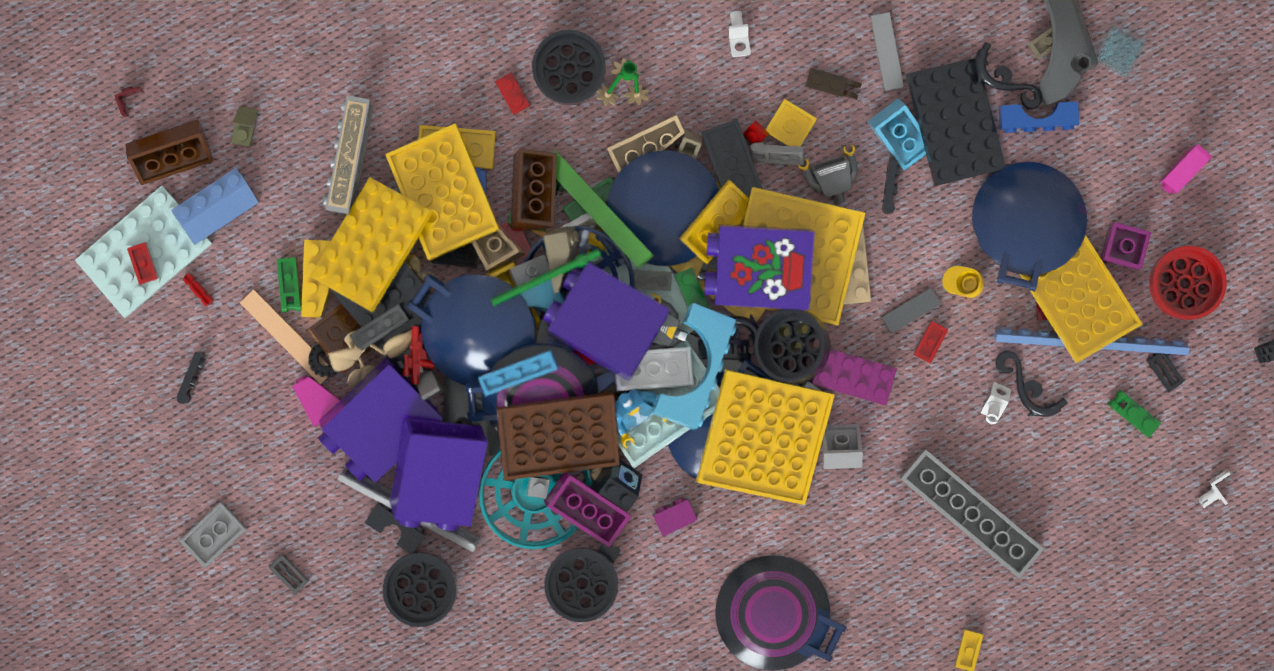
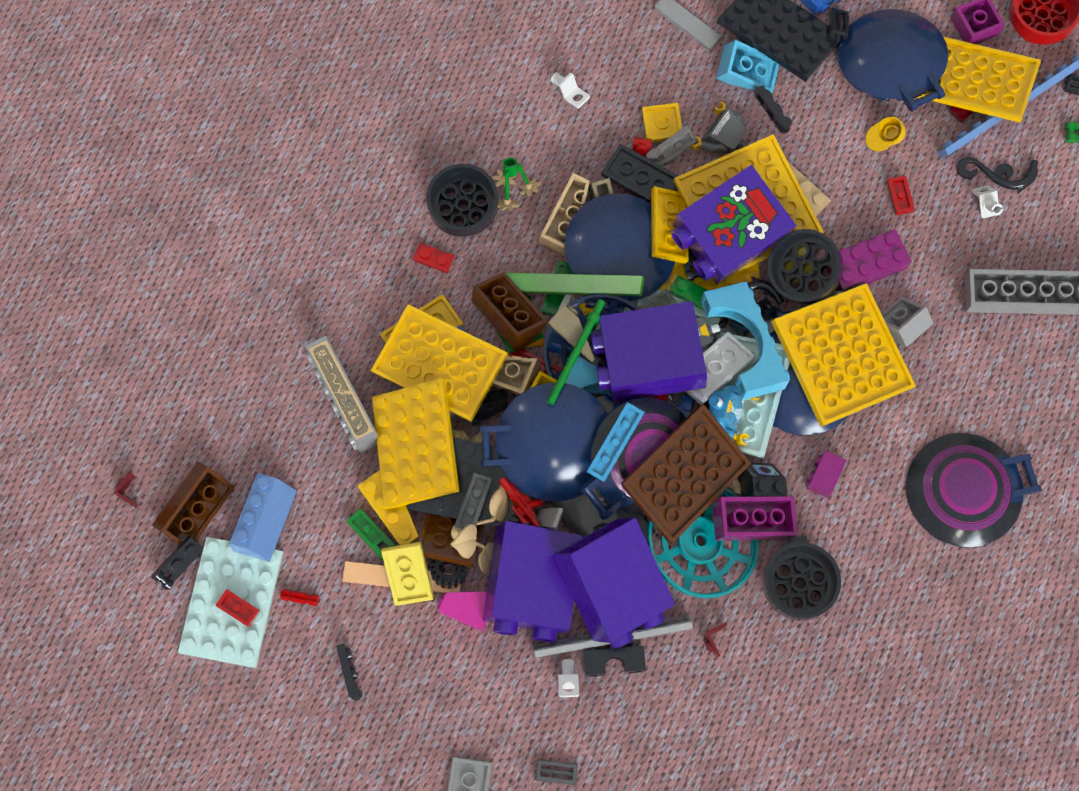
camera: 35 degrees left, 15 degrees down
(124, 189) = (177, 562): none -> black plate
(244, 126) = (240, 441): olive slope -> none
(290, 339) = (407, 573): none -> light yellow tile
(349, 514) = (568, 680): none -> white bracket
(415, 614) = (691, 668): black wheel -> none
(477, 571) = (709, 643): none -> dark red bracket
(529, 270) = (555, 366): light grey plate -> none
(538, 487) = (702, 531): light grey plate -> none
(830, 83) = (667, 73): dark brown hinge -> none
(911, 310) = (865, 185): dark grey tile -> none
(999, 164) = (836, 14): none -> black tile

